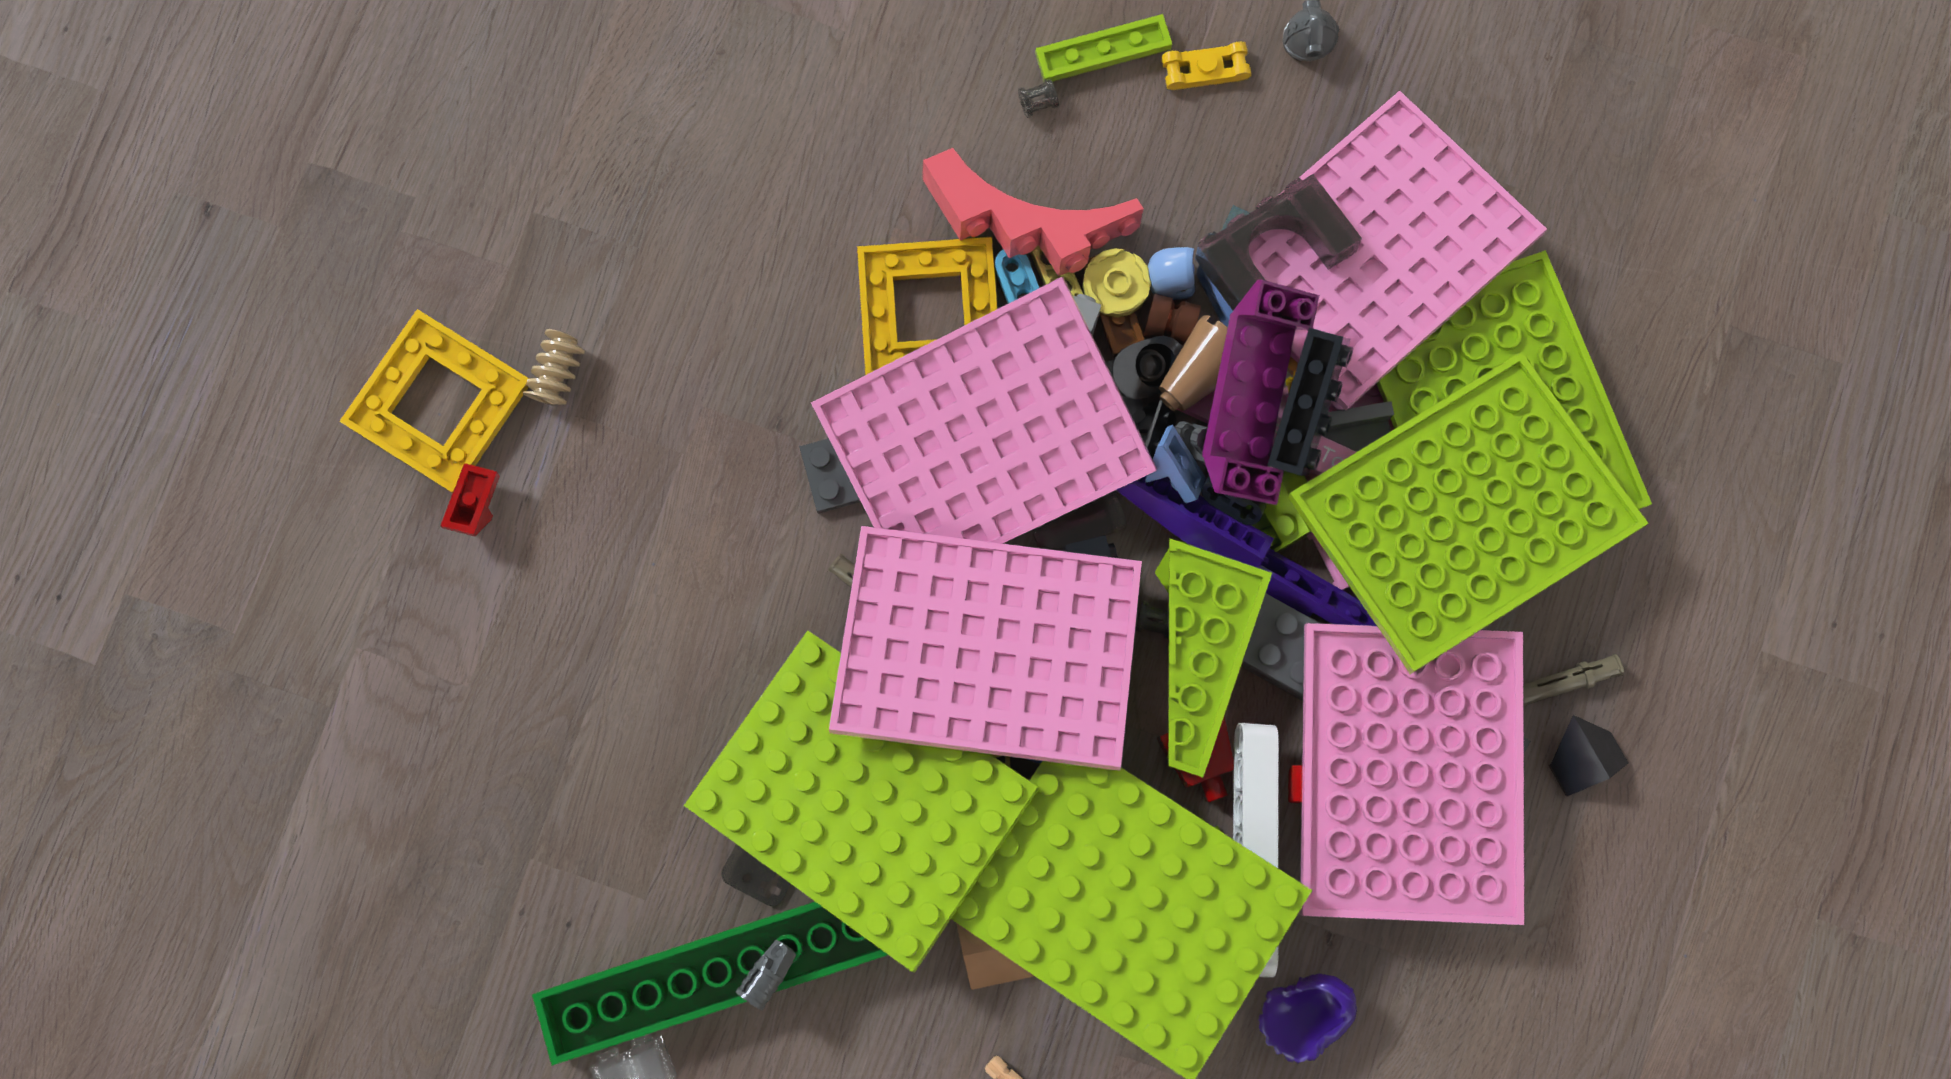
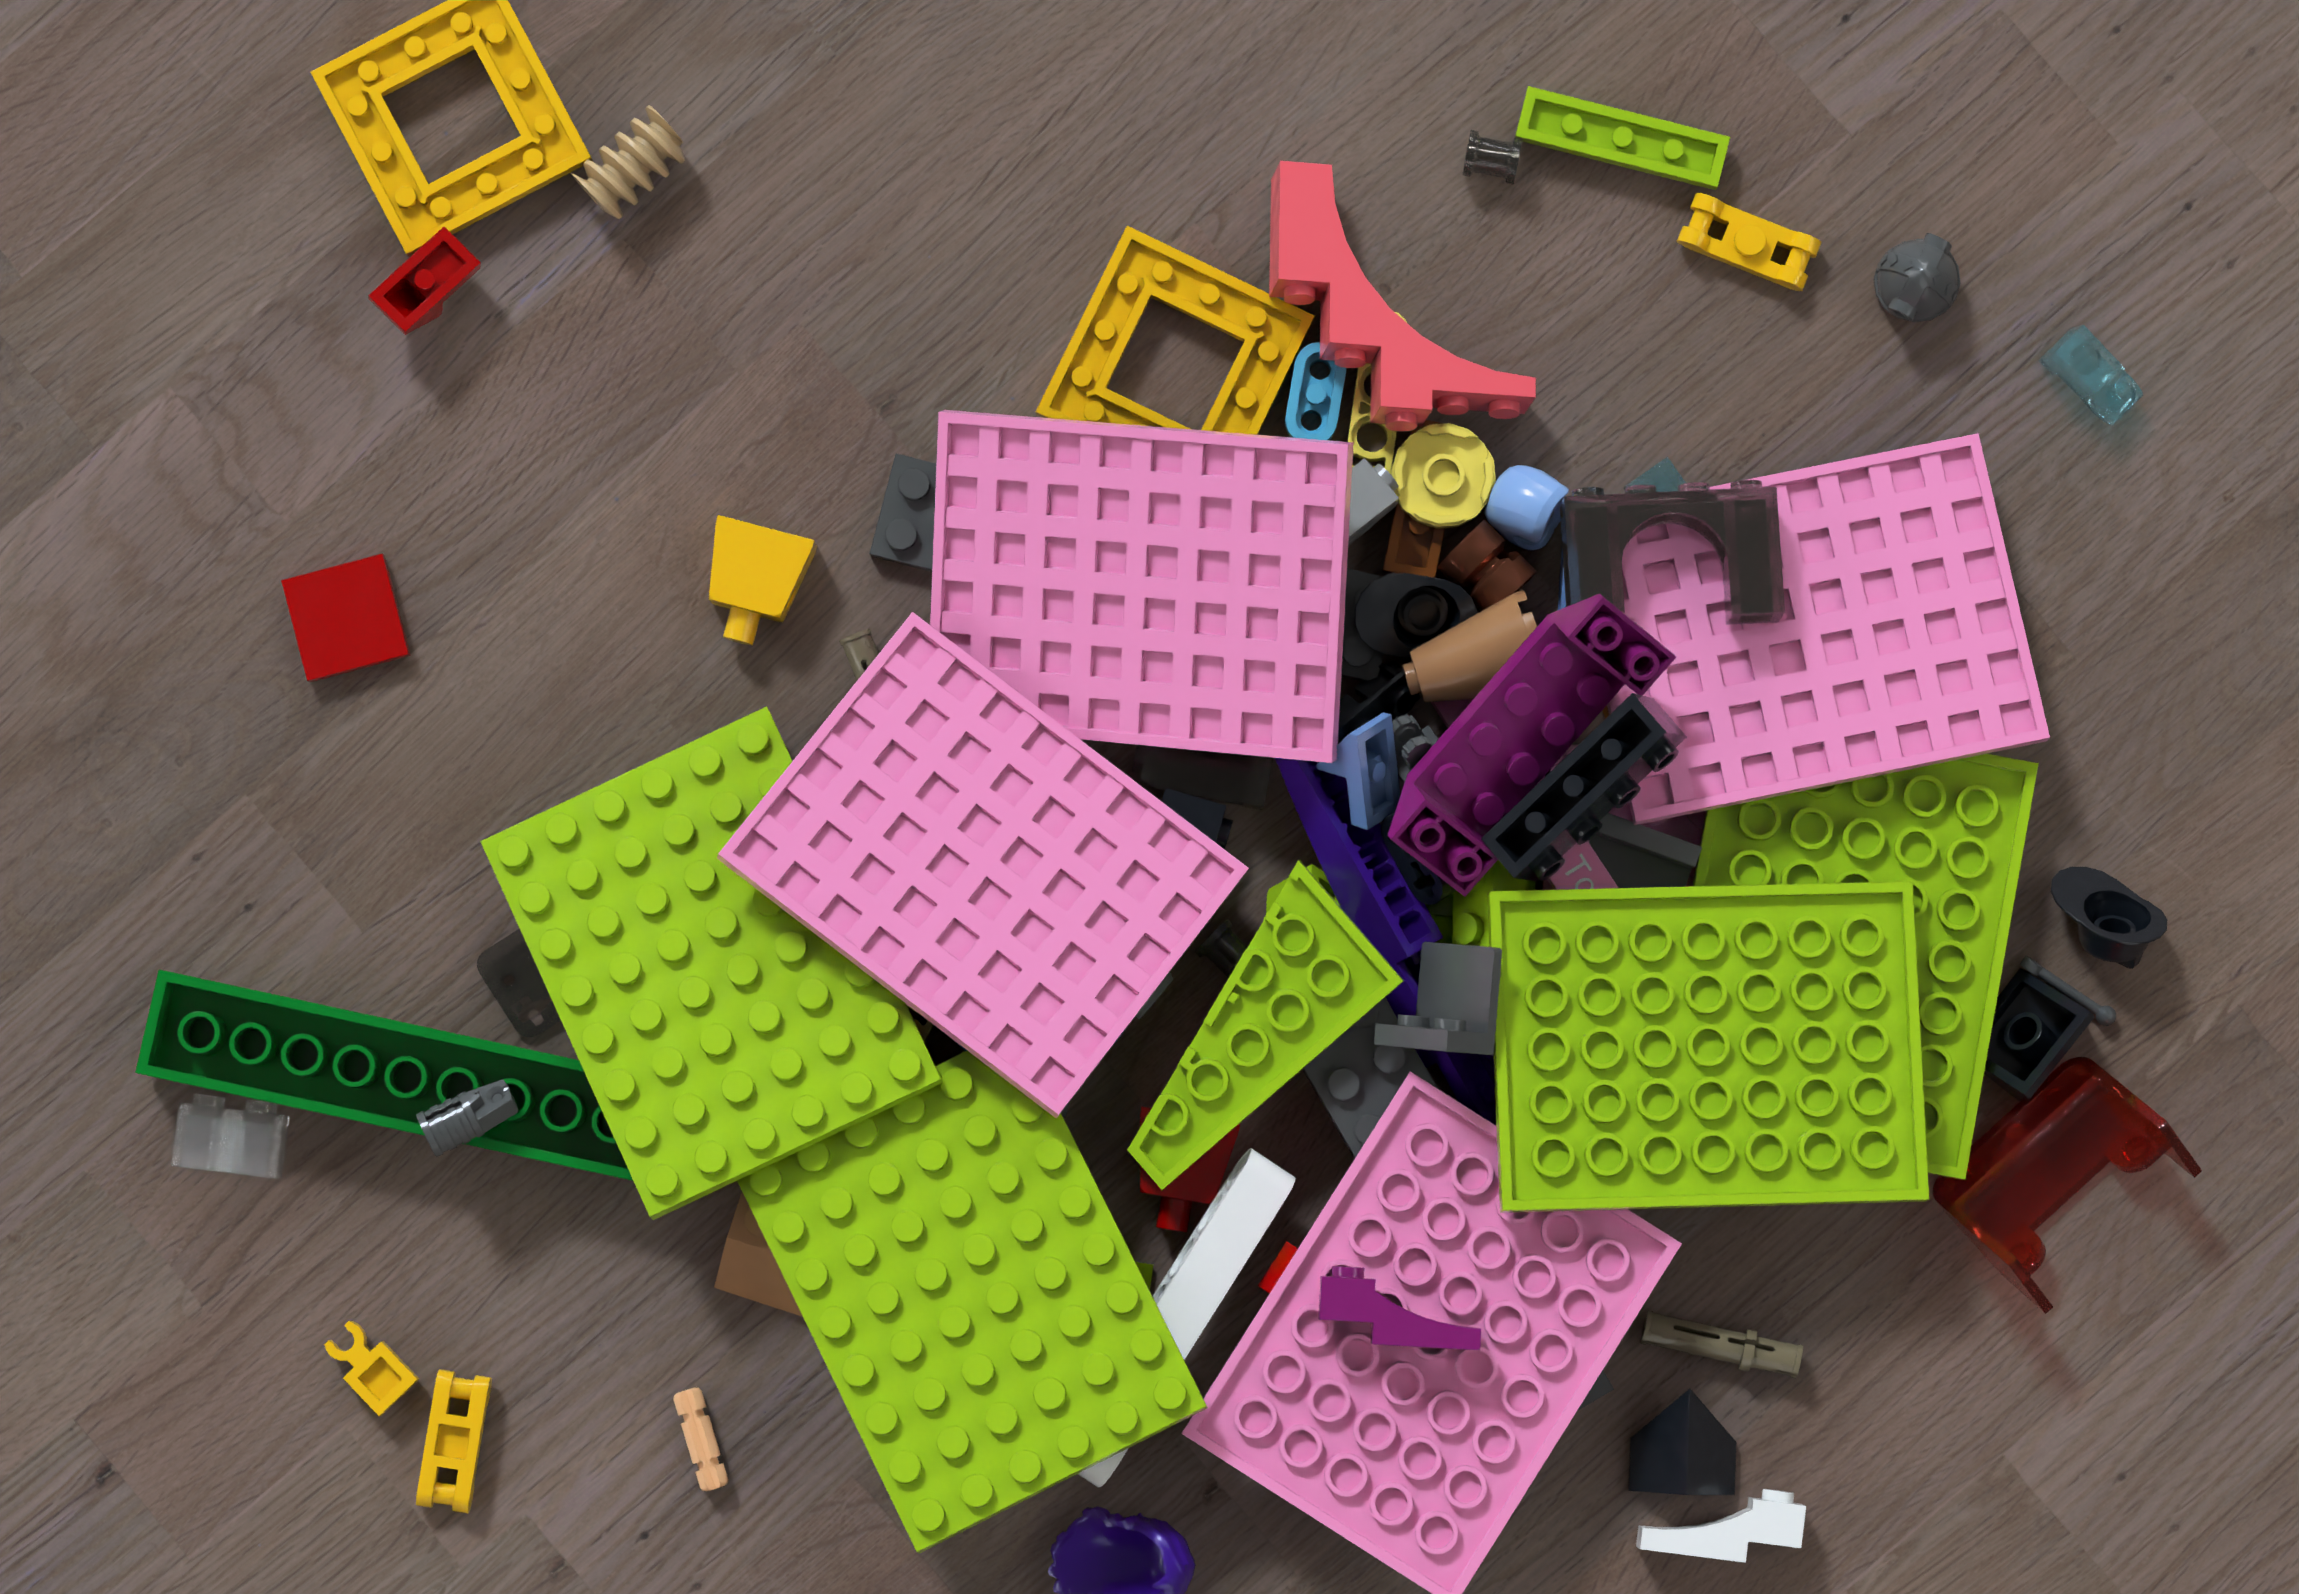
camera: 30 degrees right, 5 degrees up
(532, 721) = (345, 618): none -> red tile
(758, 559) = (755, 574): none -> yellow torso
(1307, 568) = (1453, 1002): none -> dark grey bracket
(1358, 774) = (1354, 1299): none -> magenta slope
(1436, 29) = (2092, 374): none -> clear light blue leg
(1633, 316) = (2109, 915): none -> black piece
(1637, 403) = (2031, 1034): none -> black slope
(1644, 787) = (1765, 1521): none -> white slope
(1661, 372) = (2104, 1014): none -> dark grey hinge
(1681, 461) = (2044, 1157): none -> clear red windscreen

